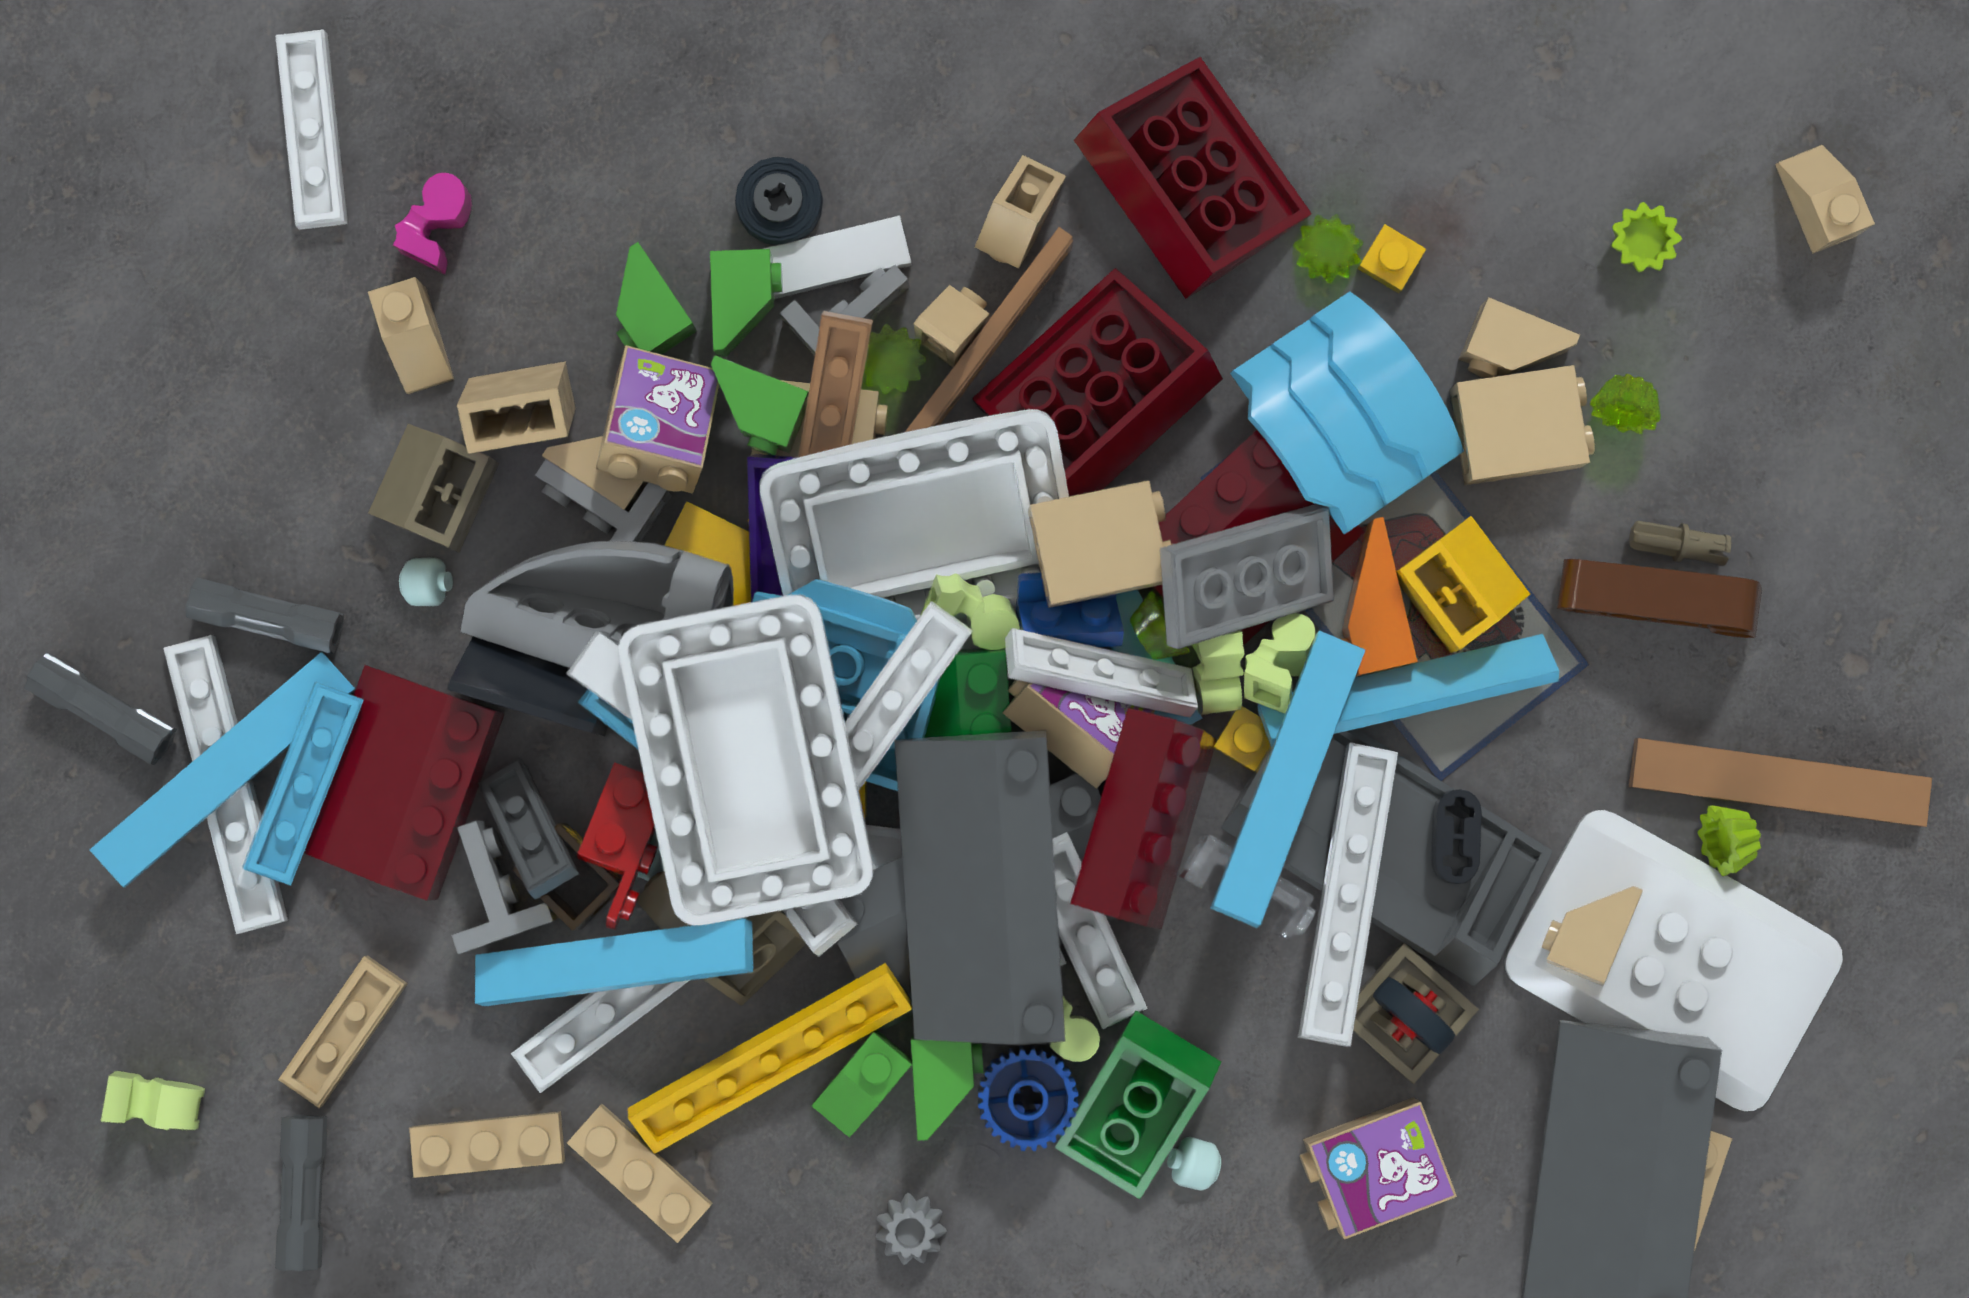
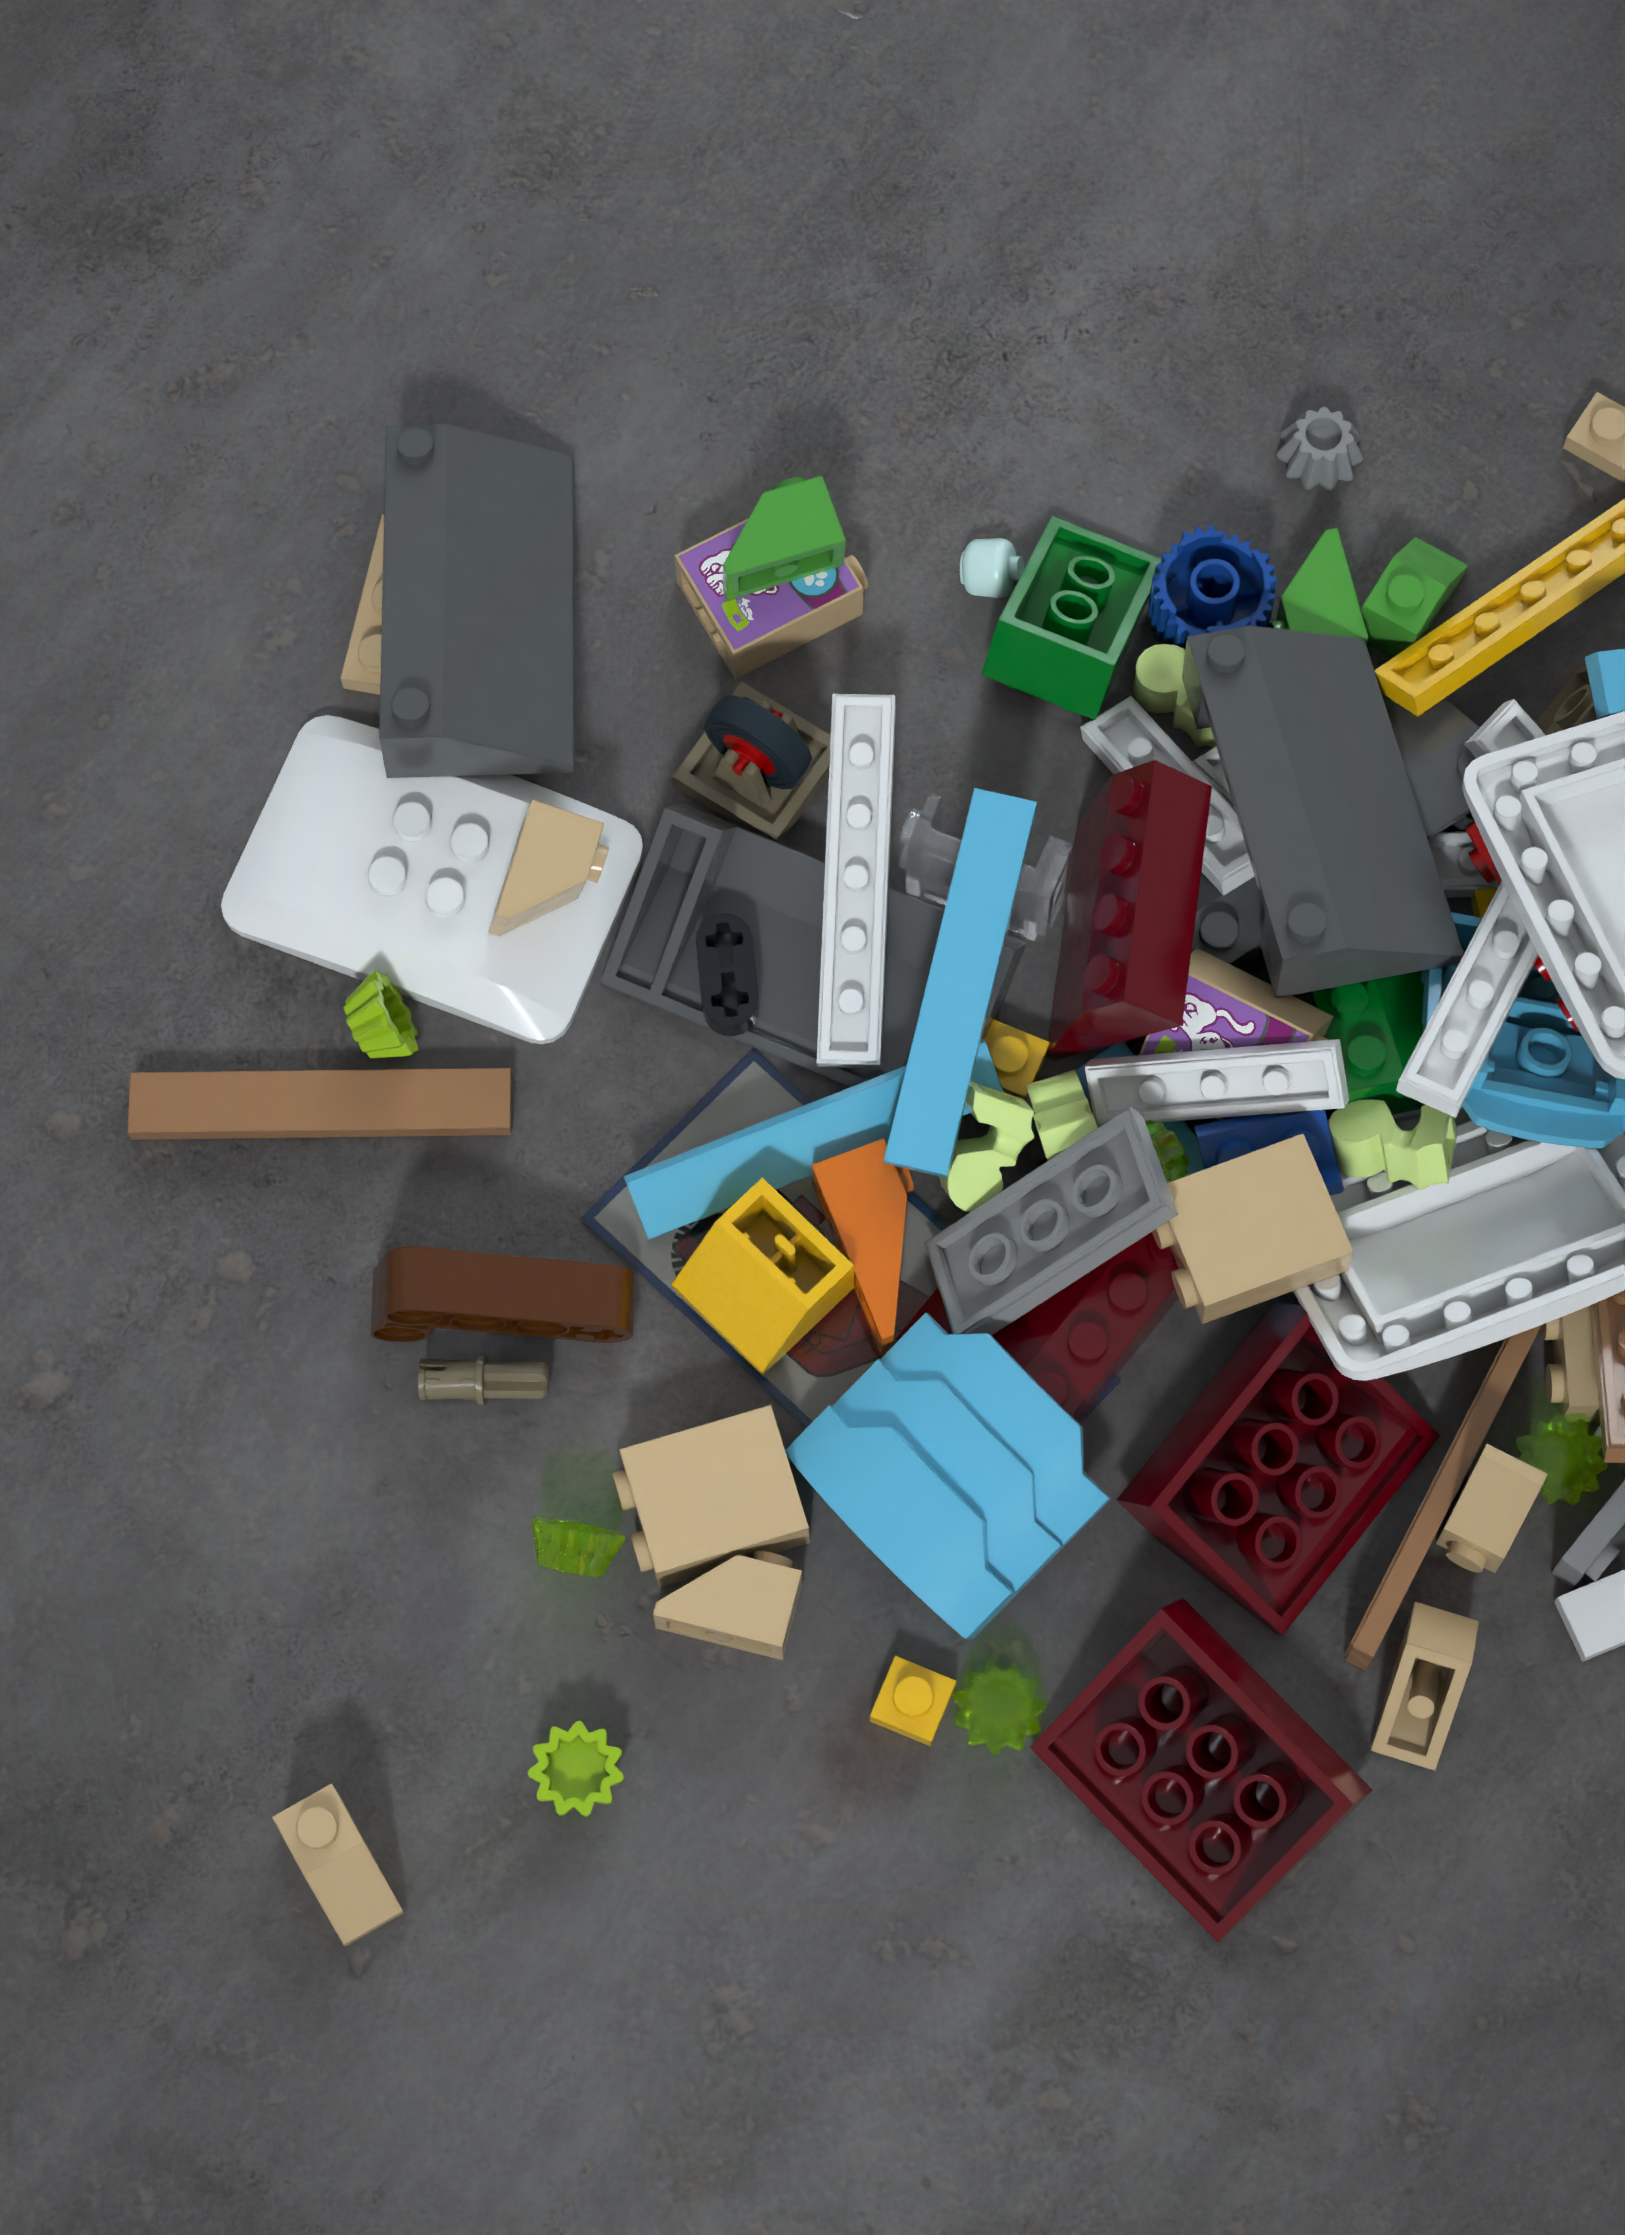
camera: 175 degrees right, 15 degrees down
(1370, 1190) = (785, 539): none -> bright green slope

